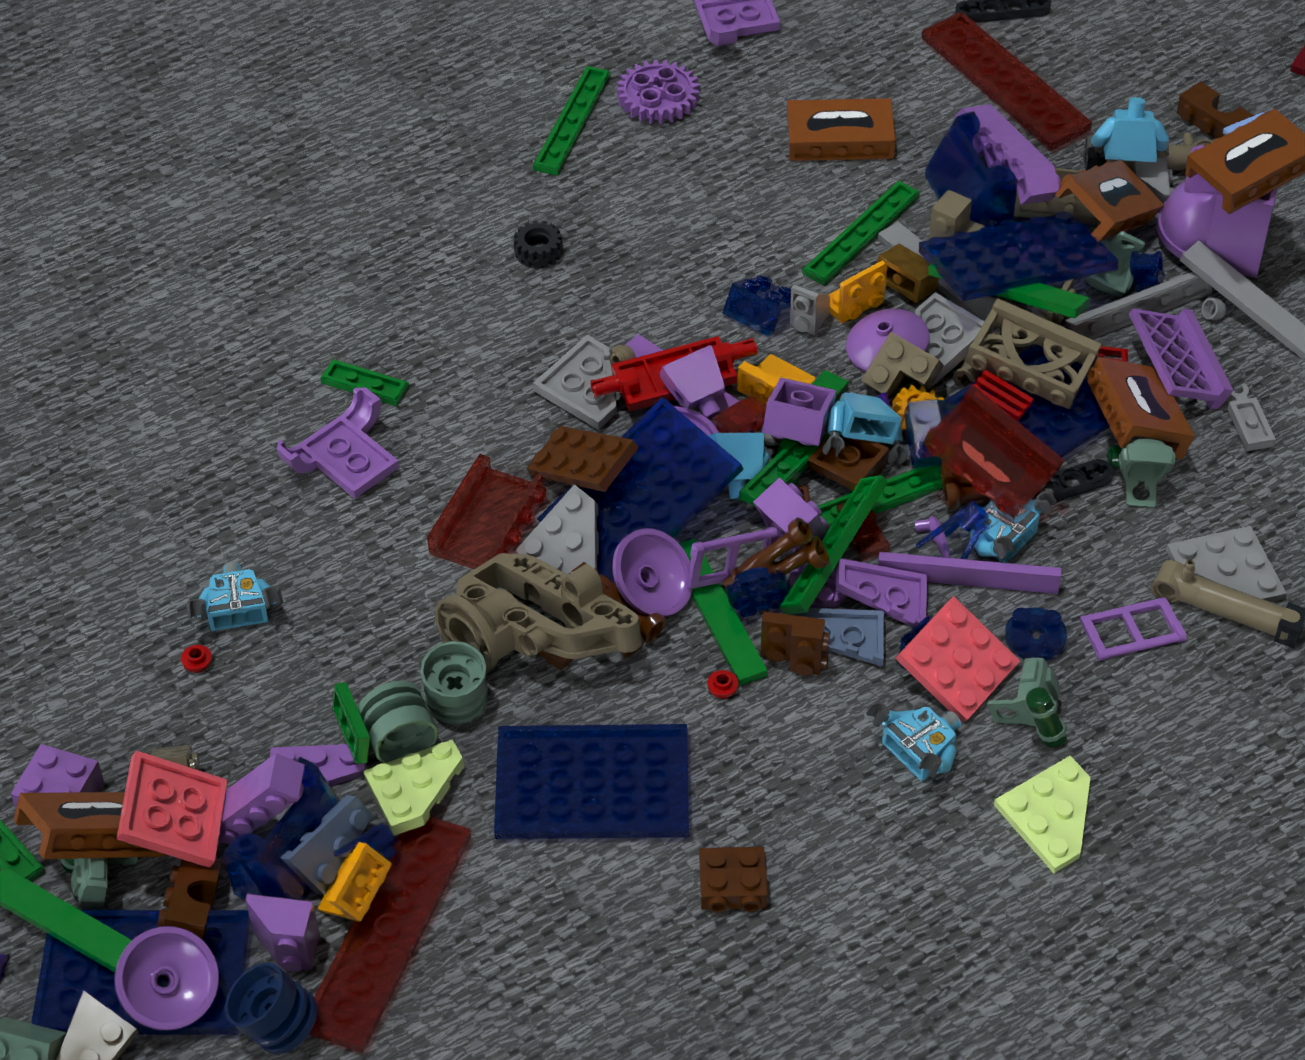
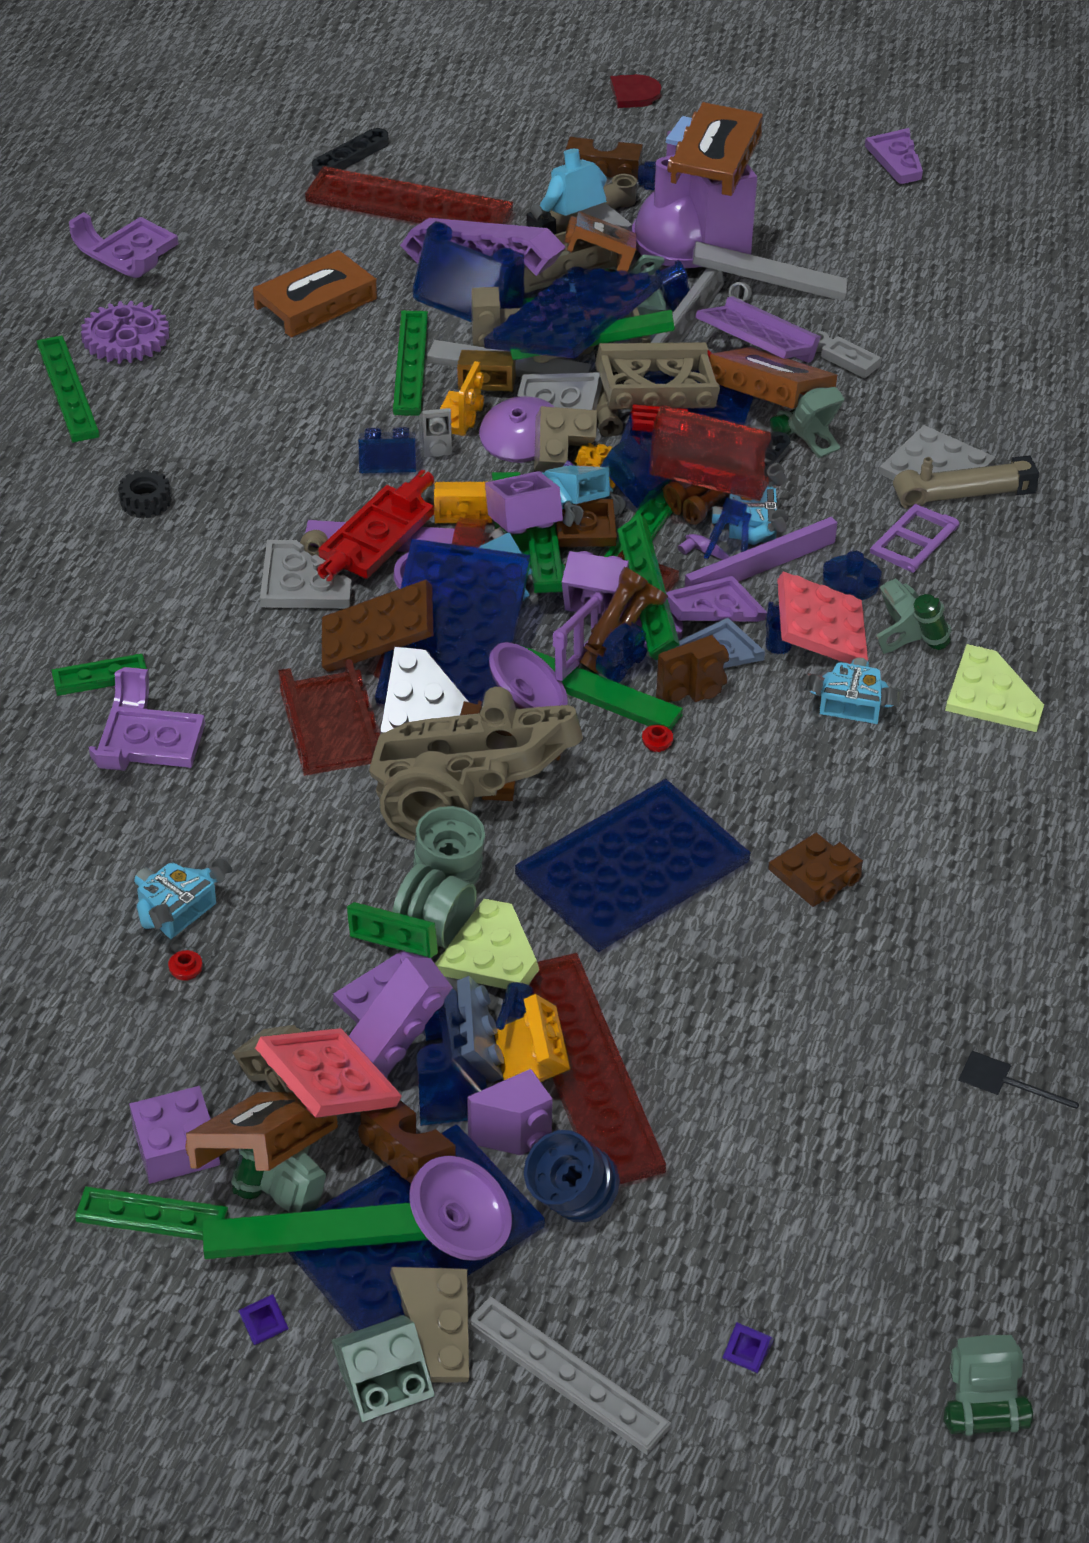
camera: 40 degrees left, 5 degrees down
(695, 381) = (410, 519): medium lavender torso -> none

